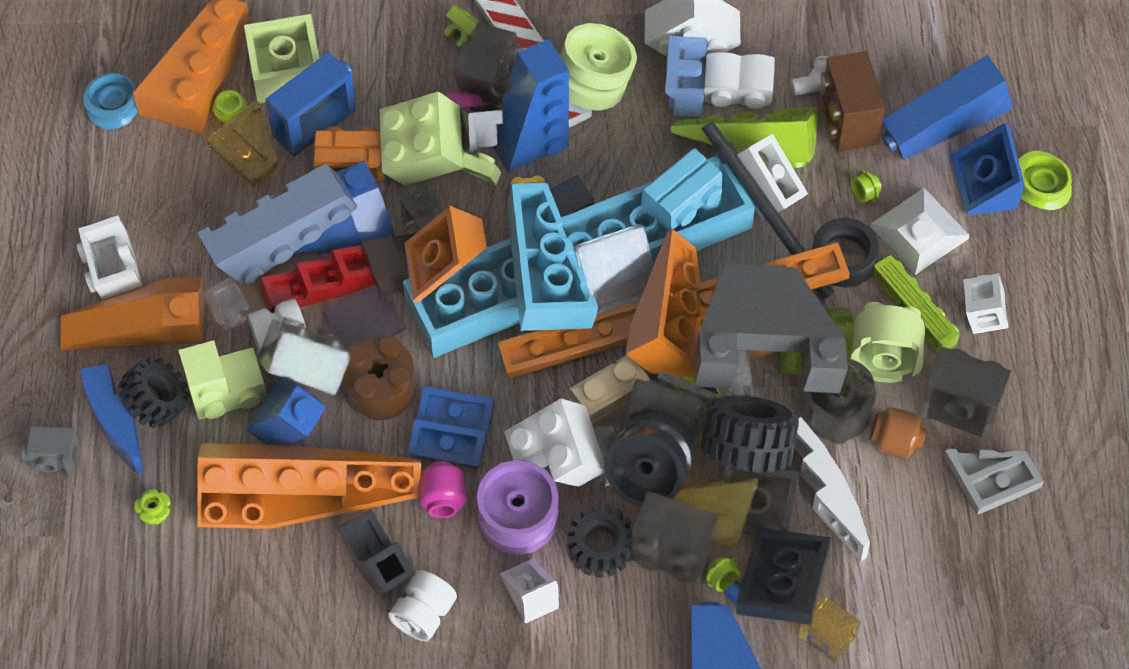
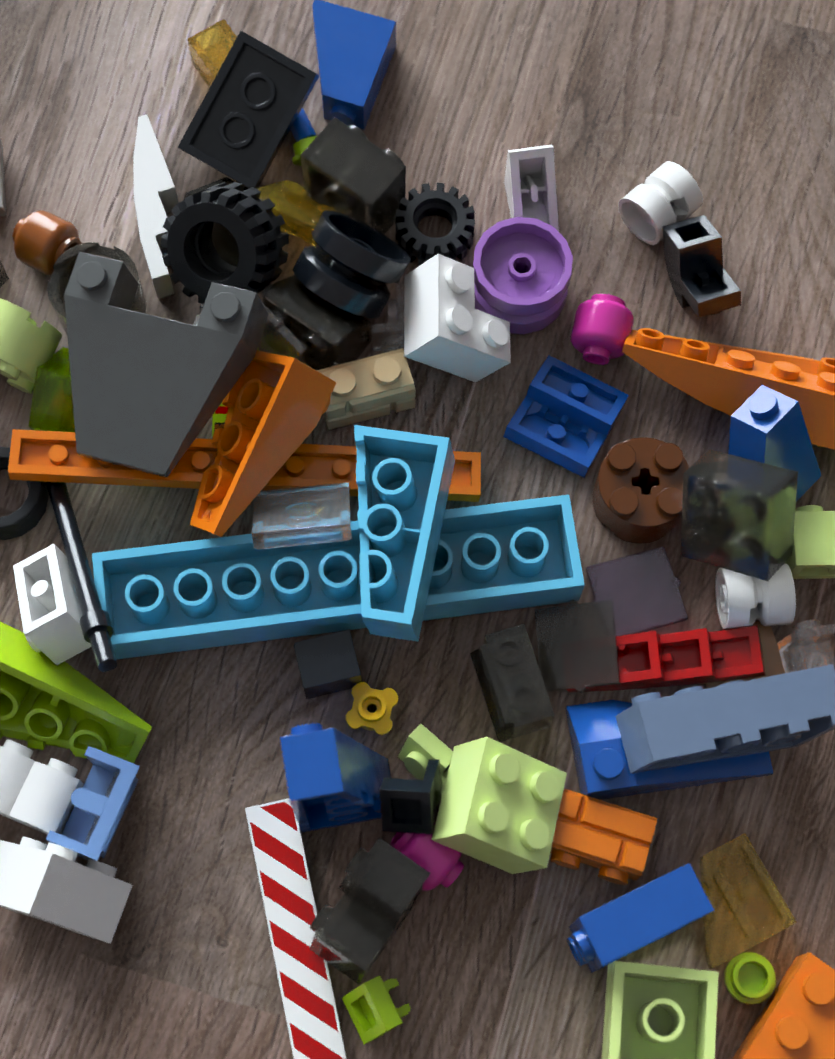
camera: 165 degrees left, 10 degrees up
(442, 249) = (523, 582): orange slope -> none
(598, 65) = (218, 856): yellowish green wheel -> none
(682, 190) = (178, 584): medium azure brick -> none

